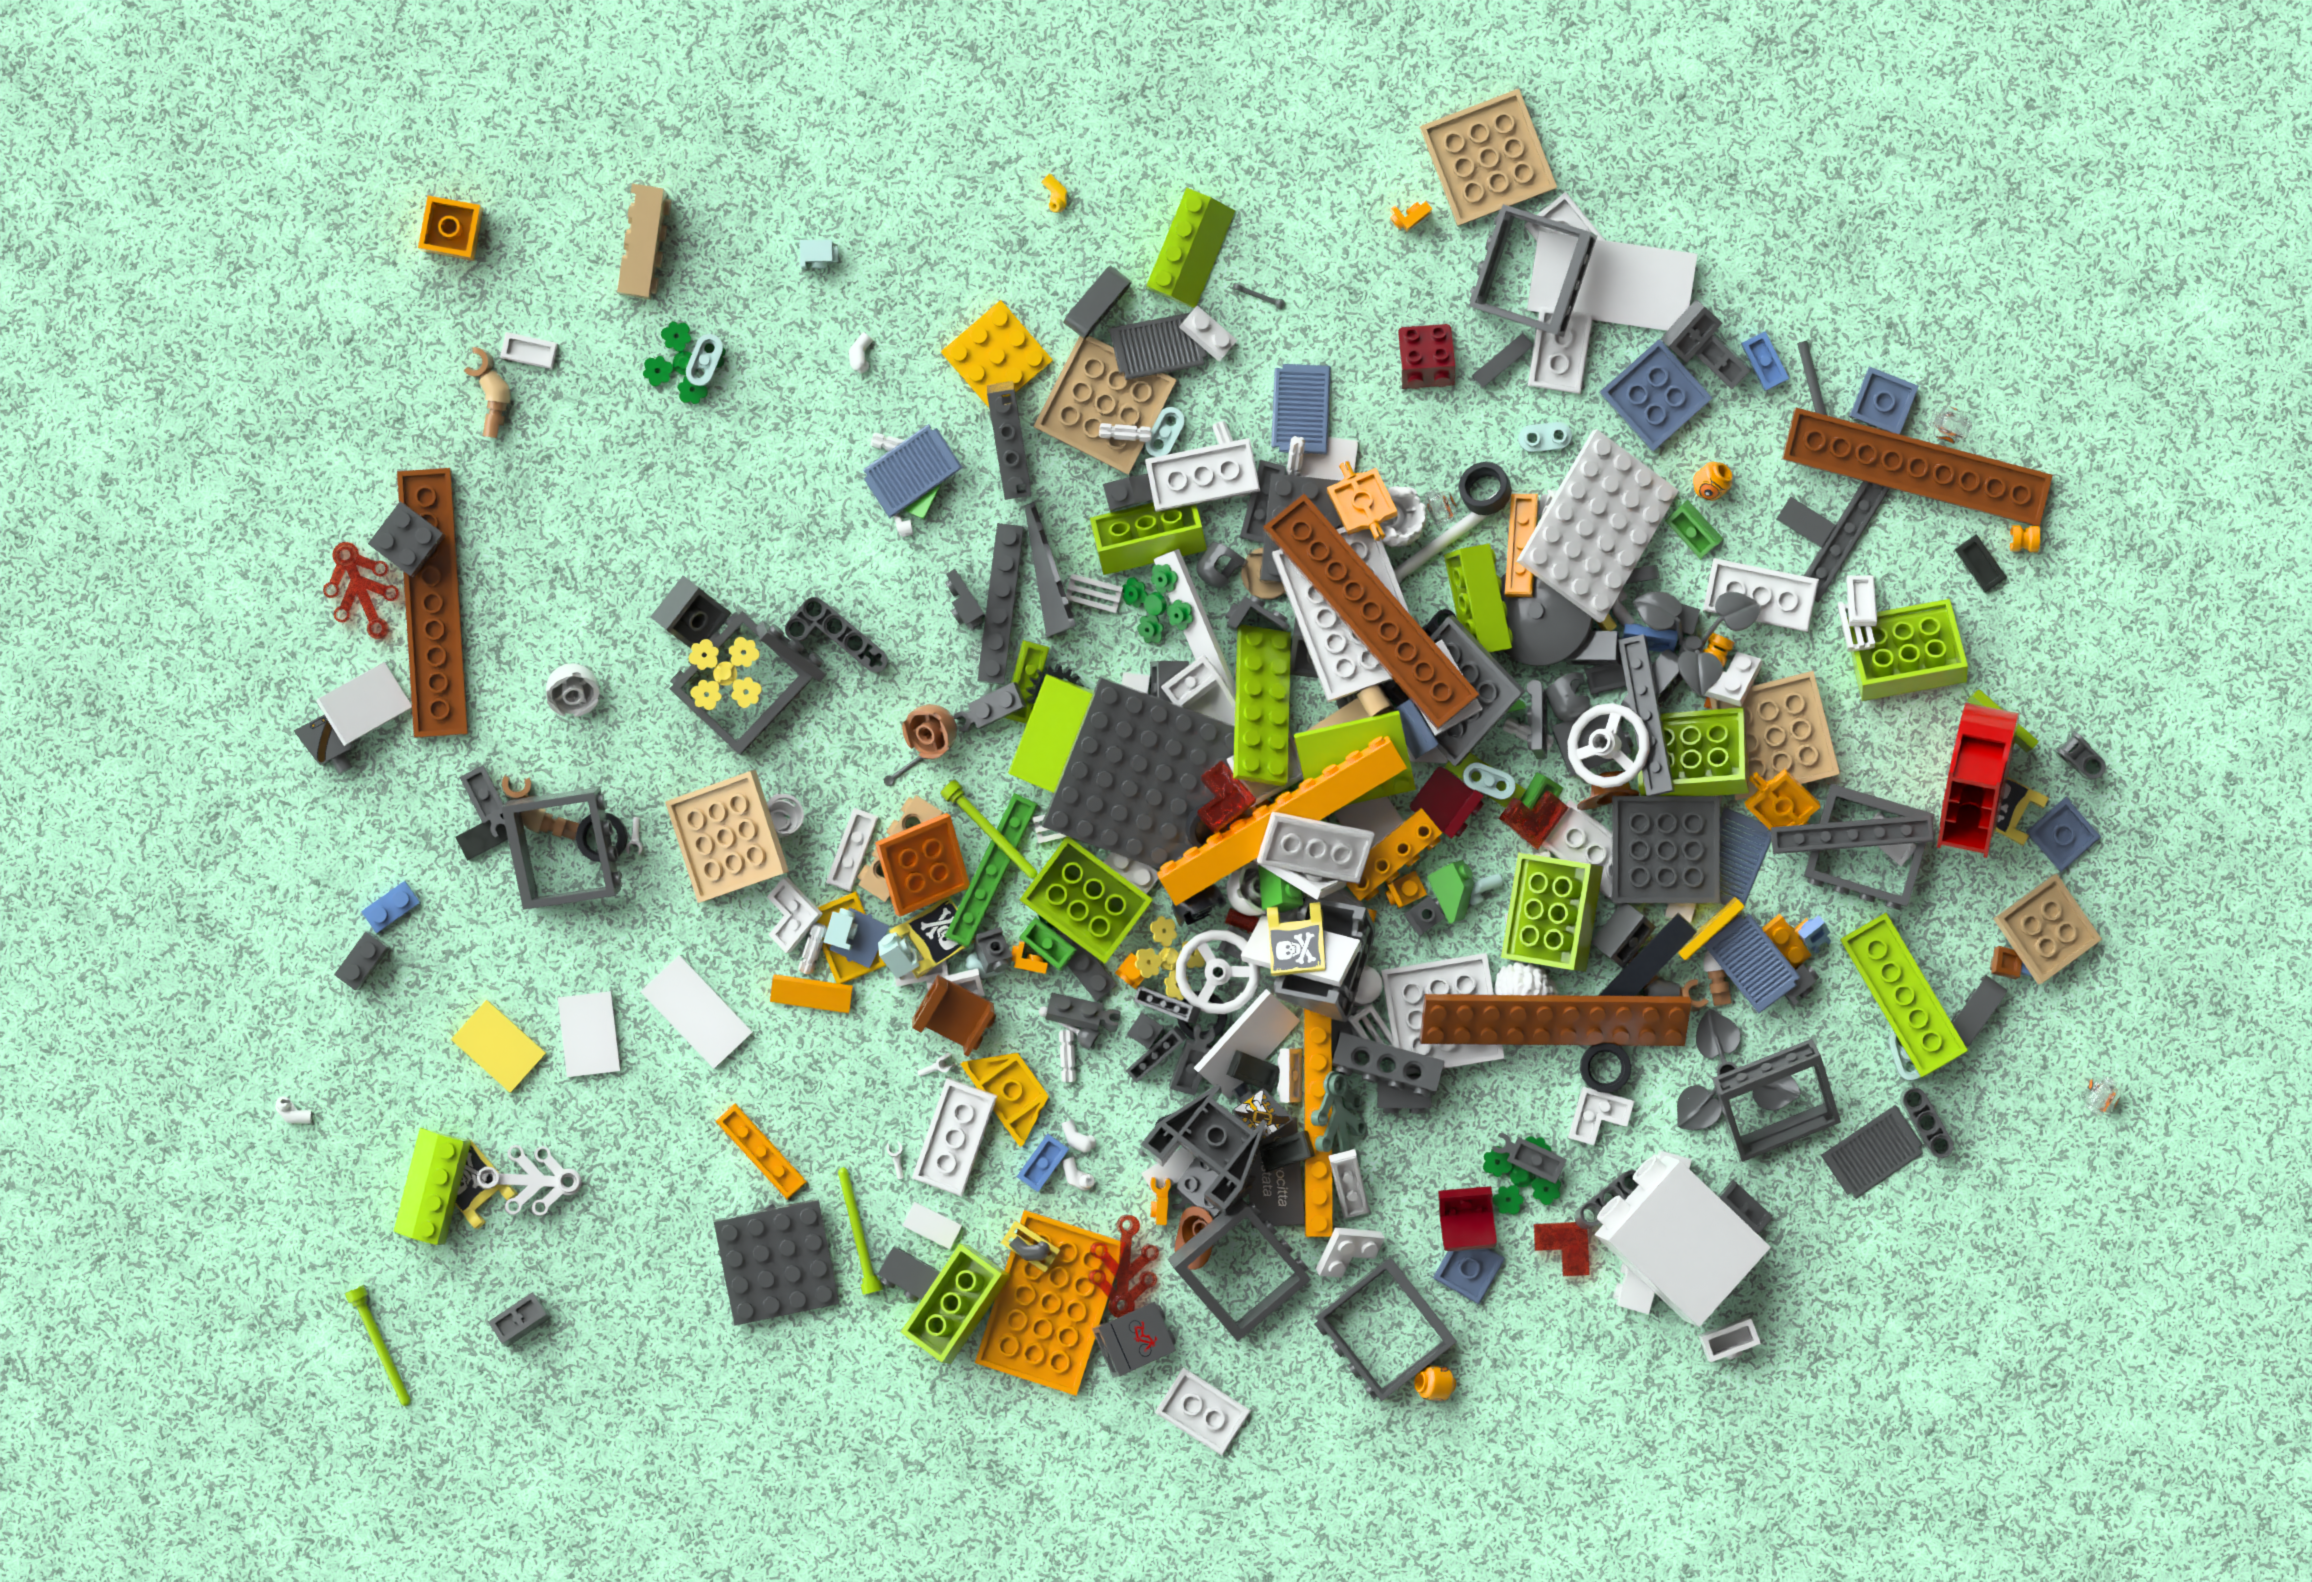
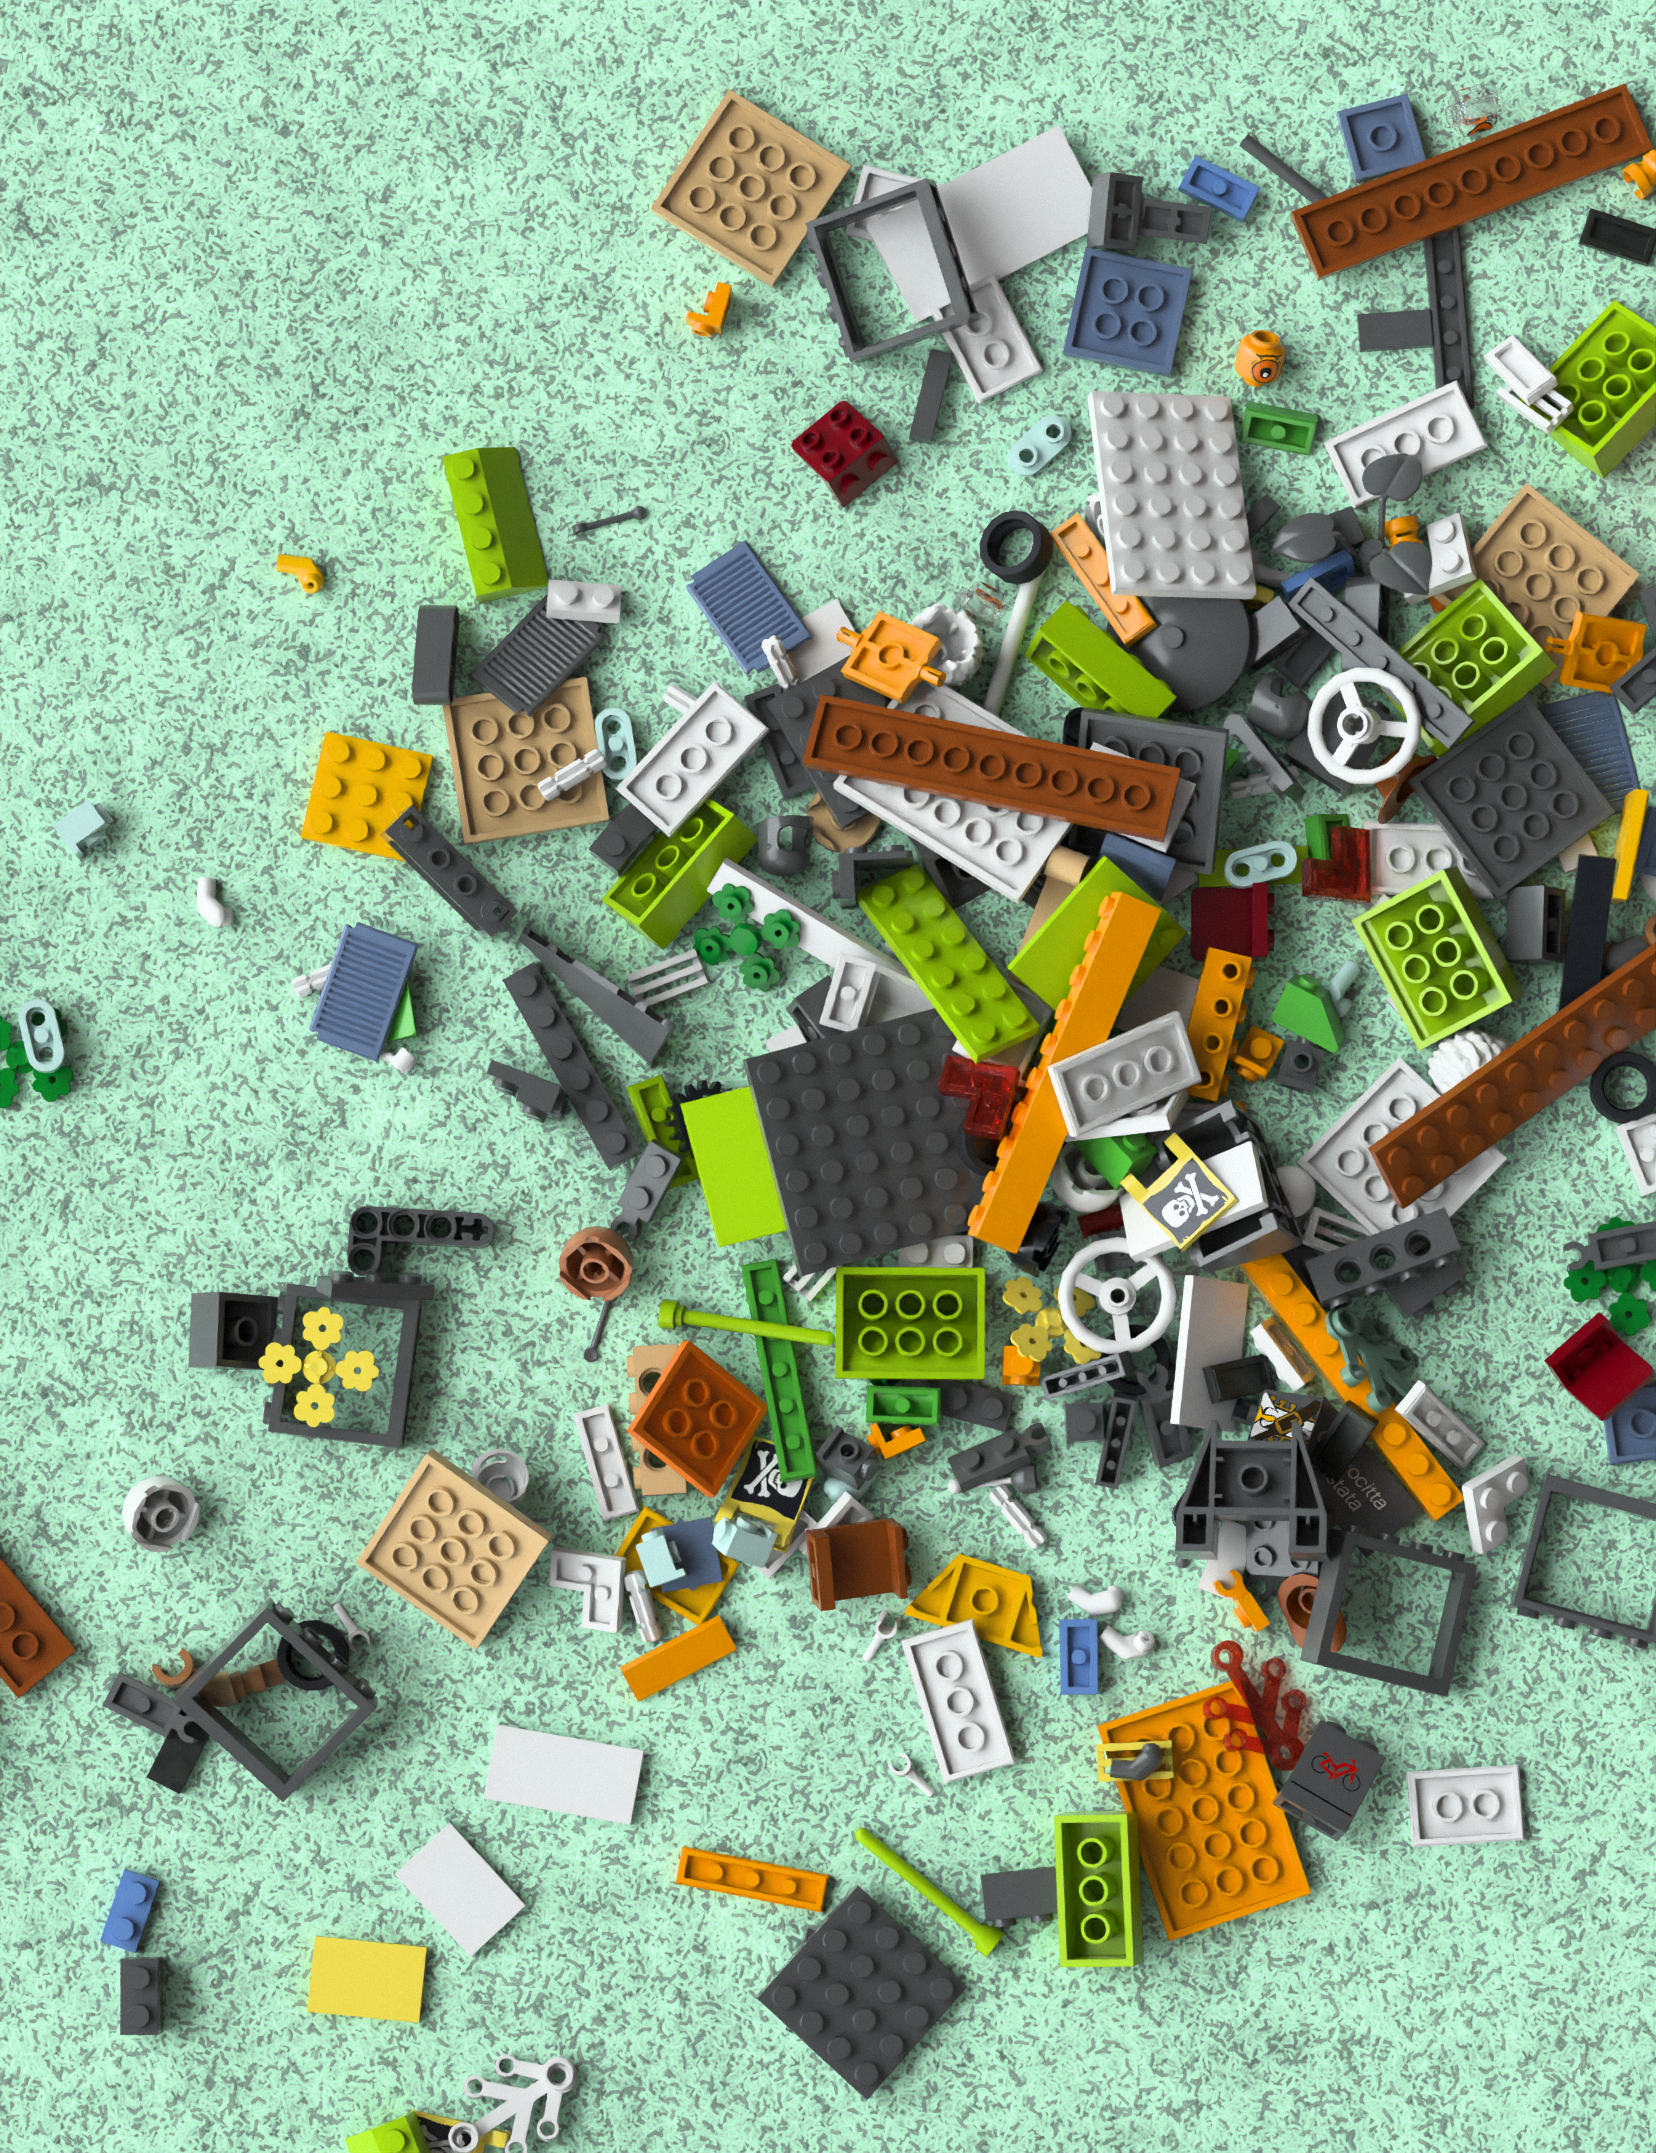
camera: 30 degrees left, 5 degrees down
(932, 1225) = (1006, 1820): white tile -> none

